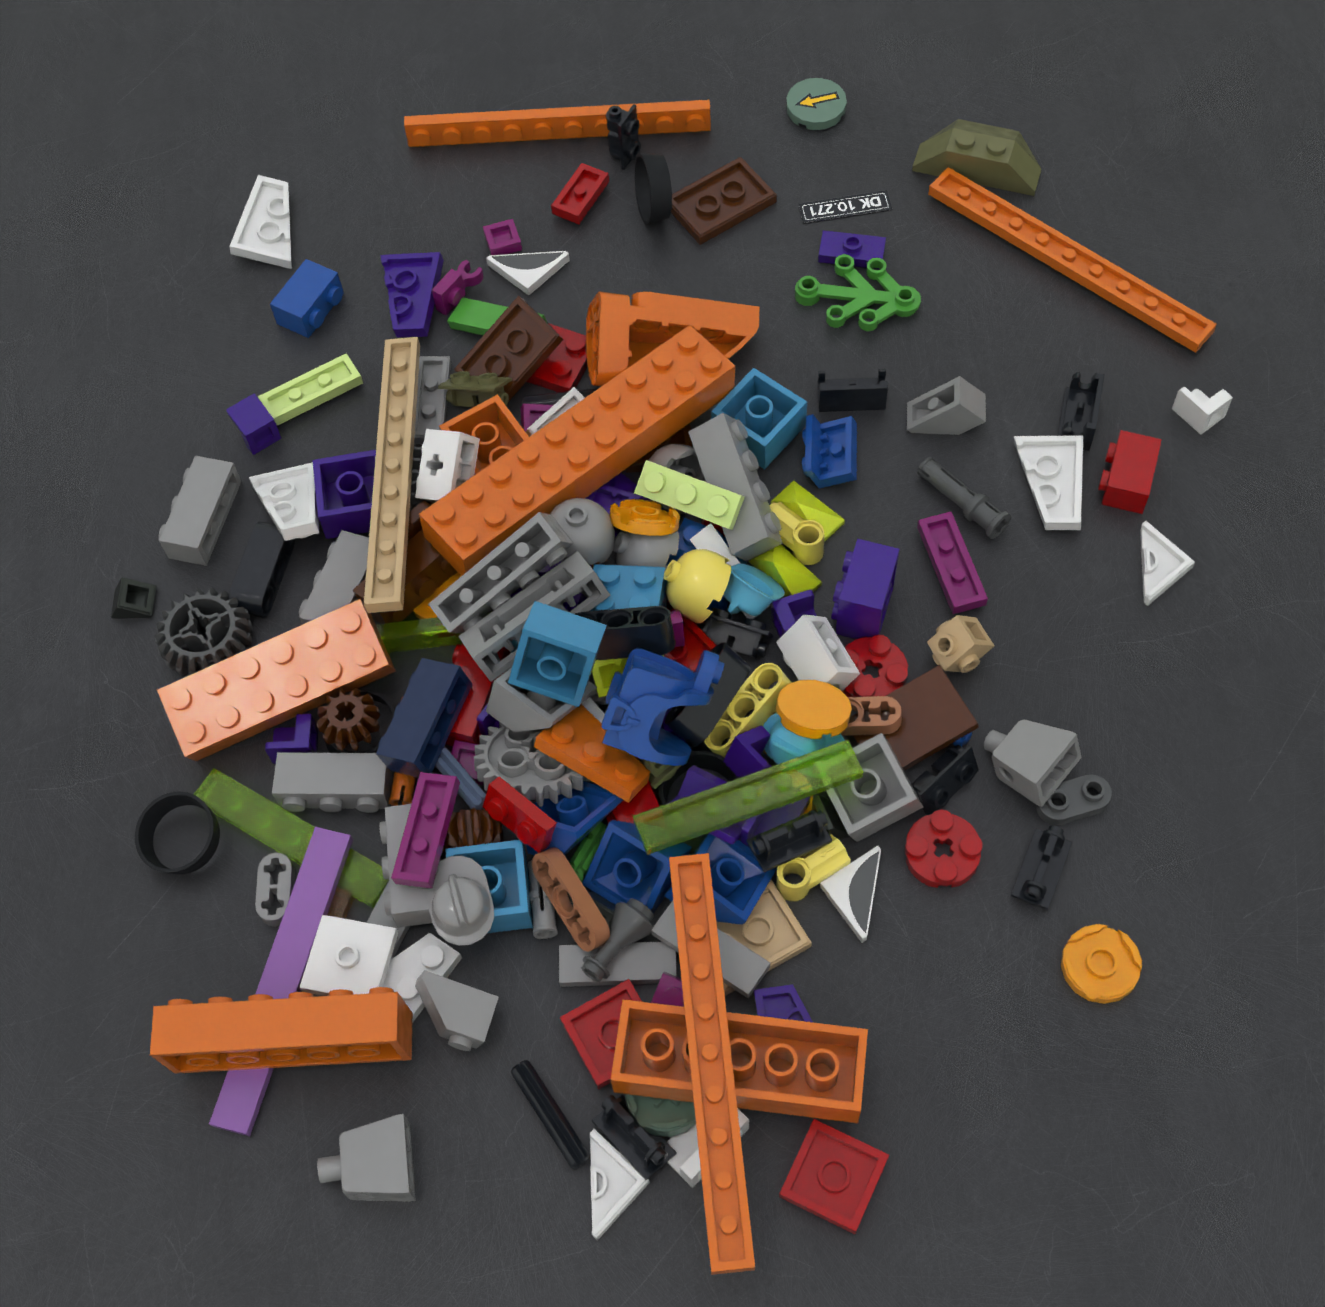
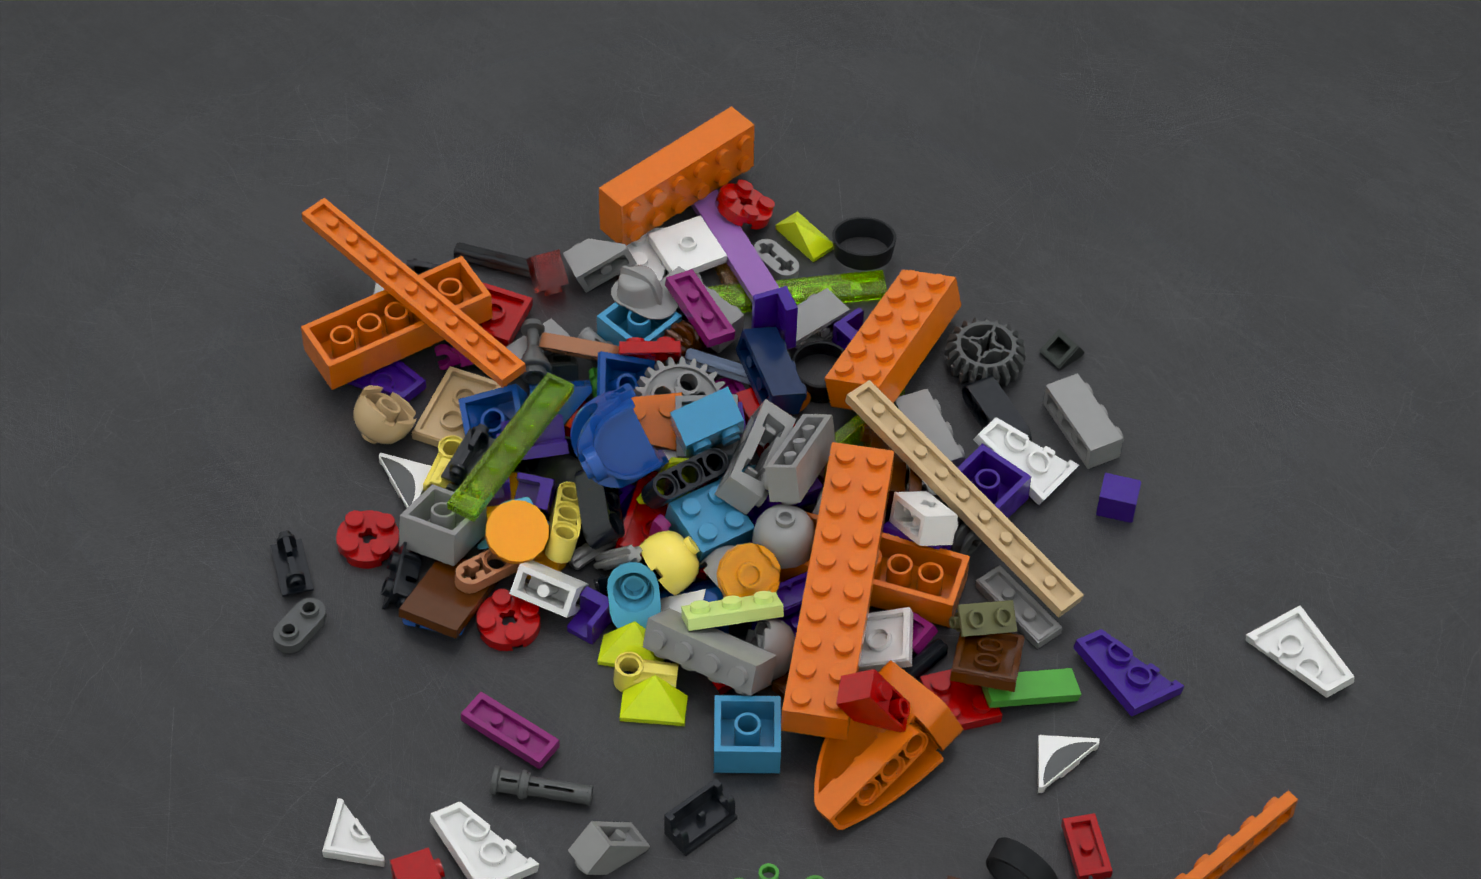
camera: 135 degrees right, 10 degrees down
(215, 905) = (805, 236): none -> neon yellow slope
(231, 958) = (743, 204): none -> red plate
(307, 298) = (1194, 611): blue brick -> none
(311, 389) = (1109, 550): yellowish green plate -> none
(334, 718) = (821, 346): reddish brown gear -> none
(361, 755) = (777, 310): none -> dark purple panel
(373, 1162) = (571, 178): light grey torso -> none
(452, 287) = (1093, 690): magenta plate -> none
(502, 237) = (1105, 764): magenta plate -> none
(517, 1035) = (547, 272): none -> clear red brick
(613, 1184) = (428, 248): white tile -> none
(660, 316) = (873, 701): none -> red slope
(737, 617) = (613, 558): none -> light grey axle
(740, 966) = (458, 384): light grey tile -> none
(830, 451) = (674, 752): blue bracket -> none
(833, 963) = (382, 417): none -> tan cylinder
(834, 1176) = (286, 323): red plate -> none
(864, 589) = (551, 648): dark purple brick -> none
(960, 644) = (455, 662): tan brick -> none
(1033, 758) = (345, 616): light grey torso -> none
(1101, 964) = (213, 538): light orange tile -> none

